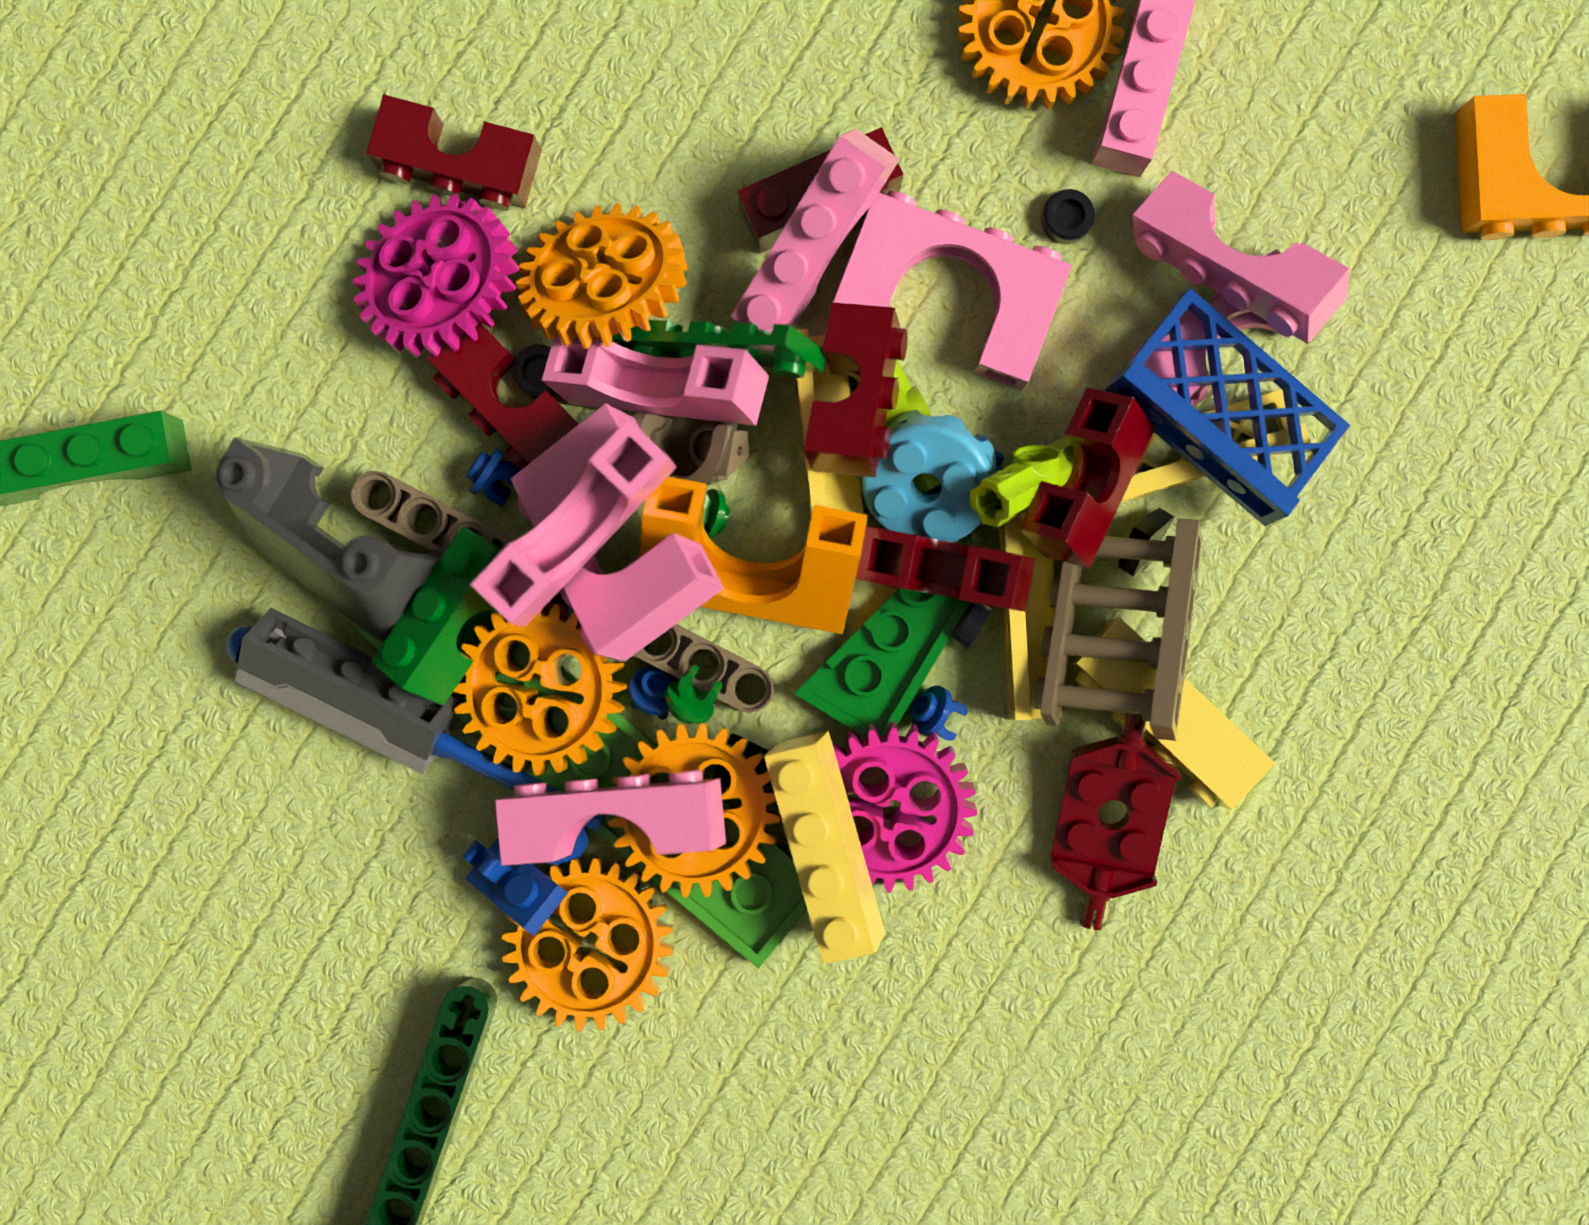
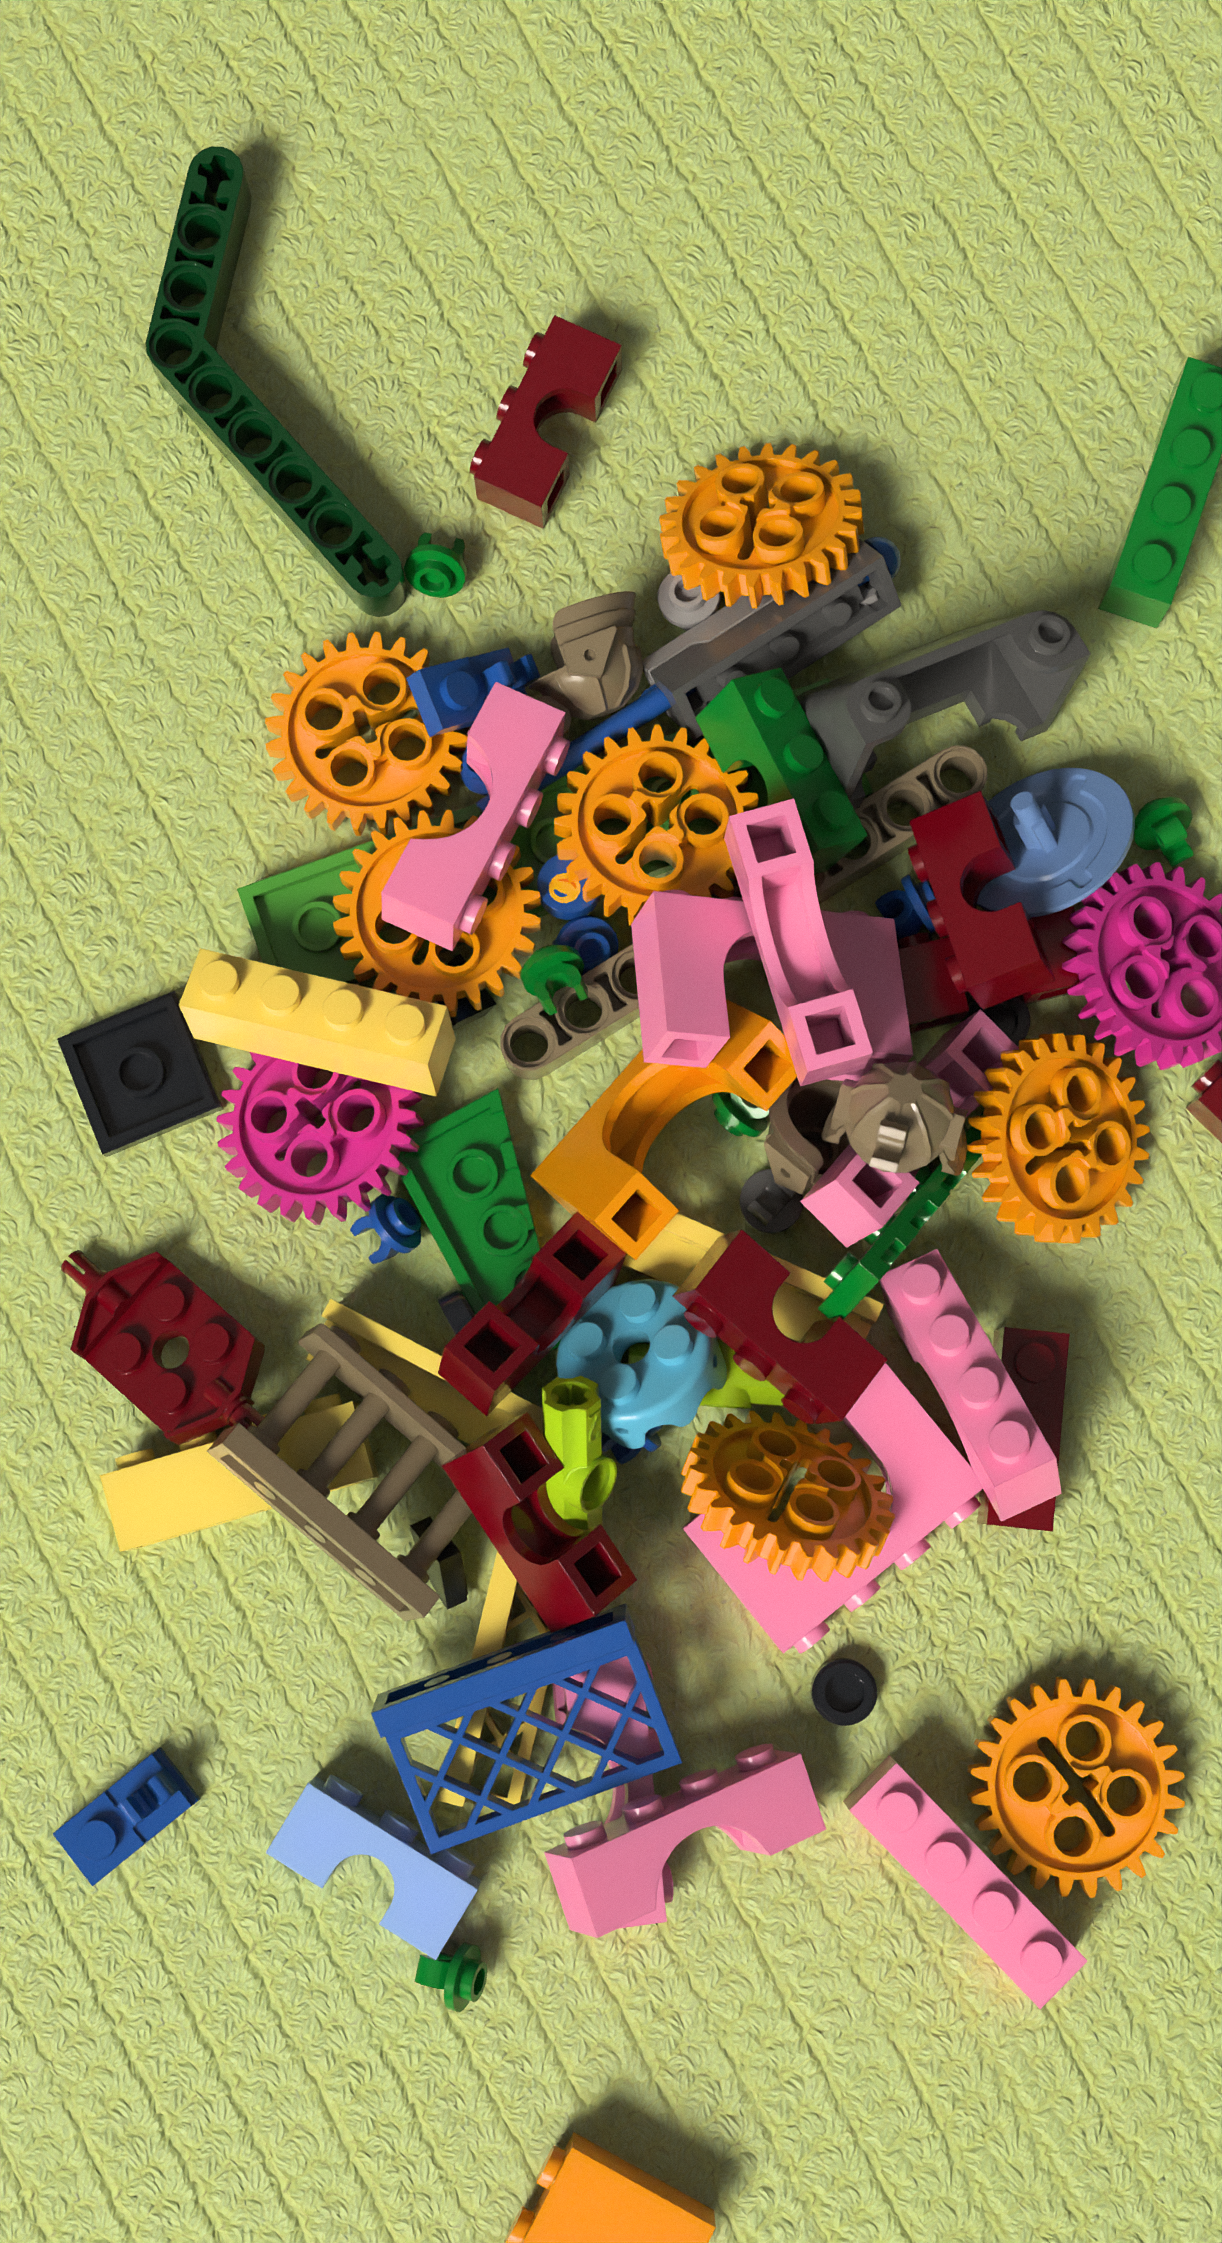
camera: 125 degrees right, 5 degrees down
(228, 955) = (565, 374): none -> dark red arch
(264, 708) = (732, 541): none -> light orange gear
(329, 331) = (1163, 826): none -> green plate
(351, 767) = (684, 606): none -> light grey plate
(391, 403) = (1064, 837): none -> medium blue piece
(436, 458) = (959, 854): none -> dark red arch
(436, 967) = (436, 568): none -> green plate
(440, 806) = (593, 658): none -> dark tan helmet
(630, 730) = (559, 896): none -> blue tile
(660, 385) = (899, 1119): none -> dark tan helmet
(765, 457) = (769, 1205): none -> dark grey plate
(930, 959) = (139, 1074): none -> black tile
(964, 279) = (831, 1517): none -> light orange gear
(1365, 504) = (428, 1887): none -> light blue arch
(1412, 368) = (459, 1975): none -> green plate
(1442, 654) = (126, 1816): none -> blue plate

